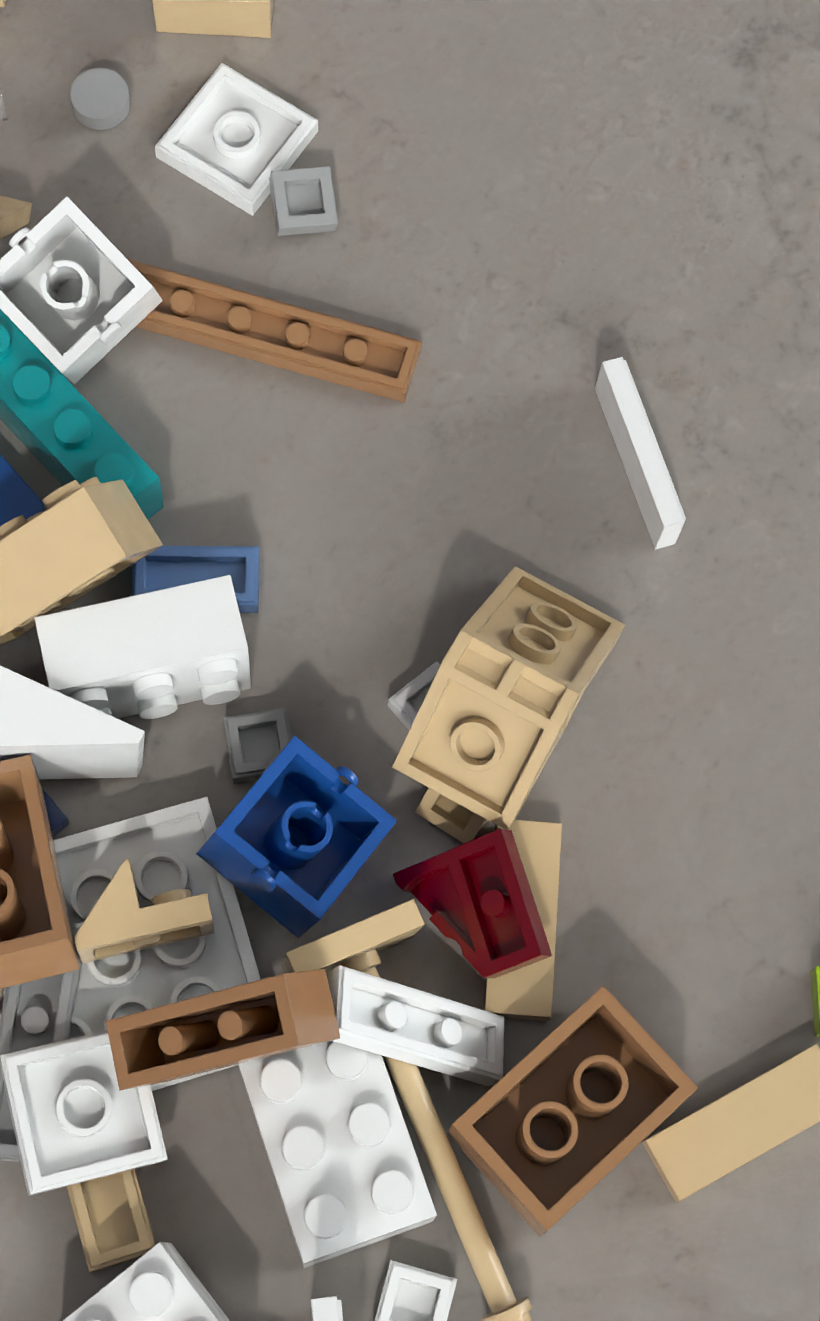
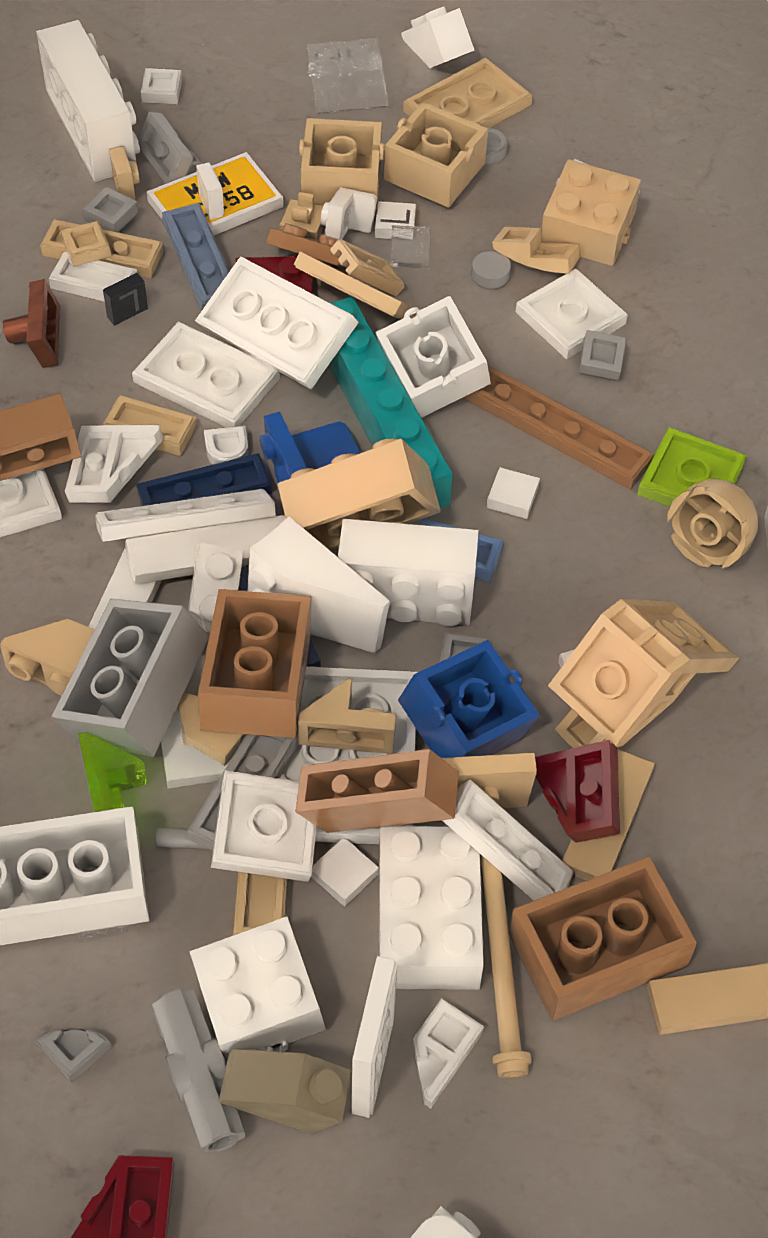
camera: 25 degrees right, 15 degrees down
(139, 49) = (526, 247): none -> tan slope
(204, 1121) = (344, 871): none -> white tile
(246, 463) = (513, 493): none -> white tile
(482, 356) = (685, 461): none -> lime tile
(538, 436) = (713, 522): none -> tan cylinder

